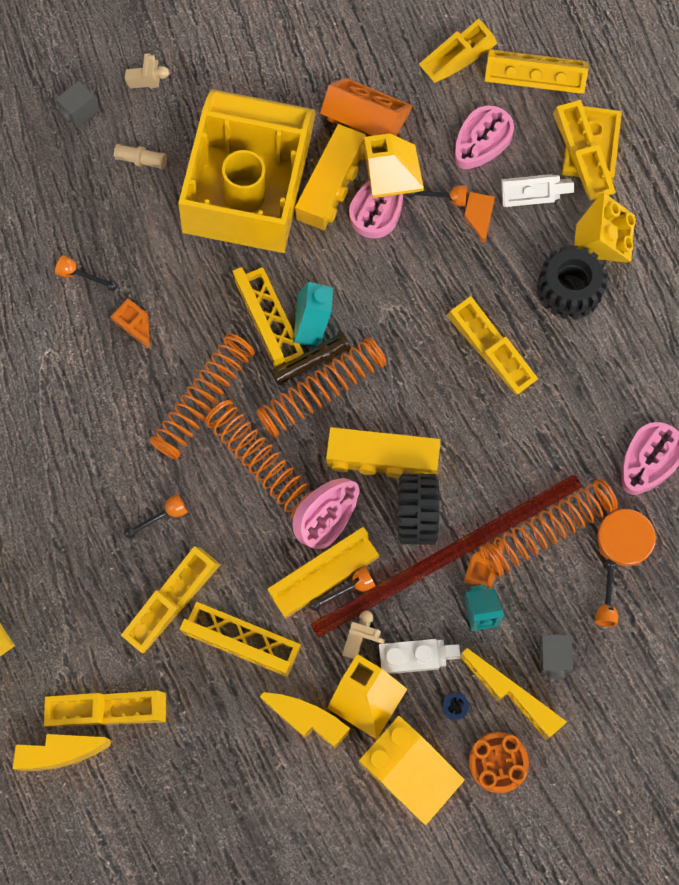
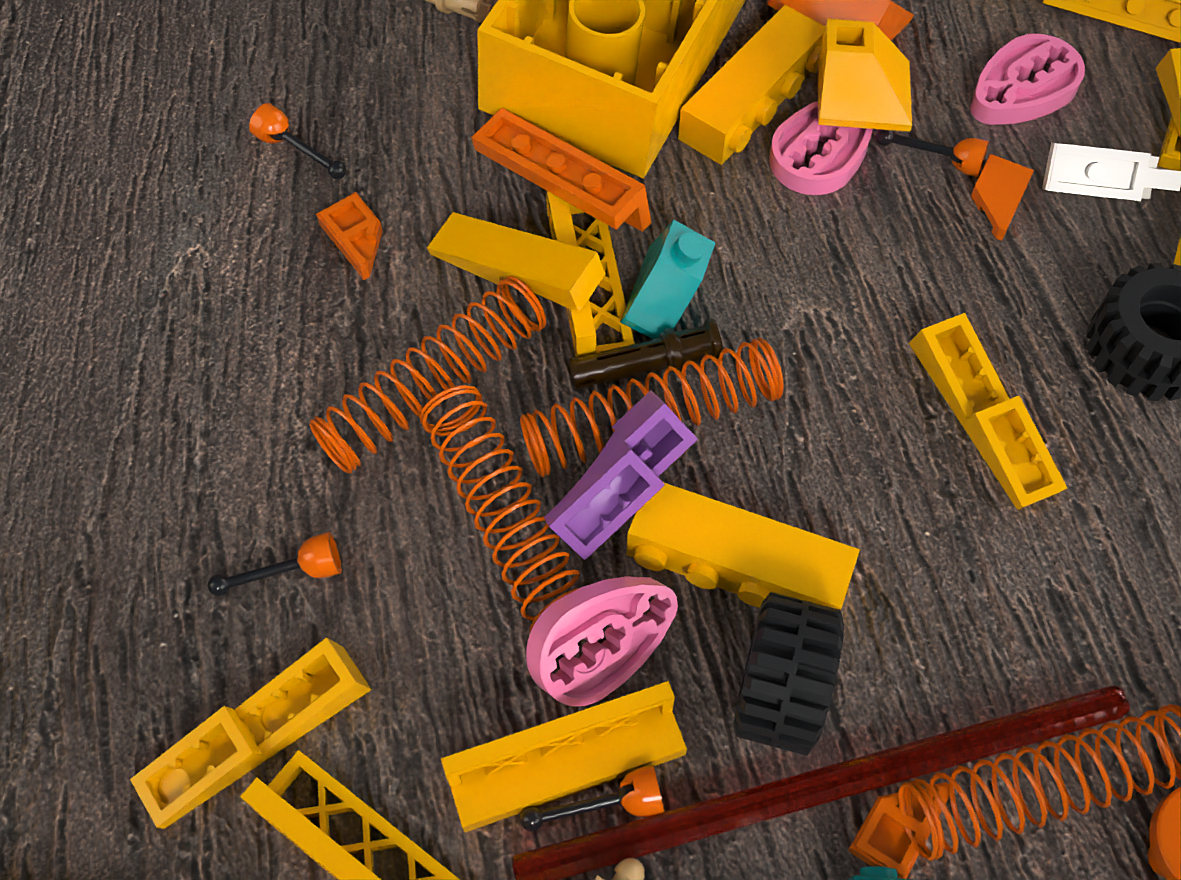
camera: 10 degrees right, 10 degrees down
(228, 319) = (545, 265): none -> yellow slope
(239, 263) = (564, 170): none -> orange fence
(317, 430) = (621, 476): none -> medium lavender slope

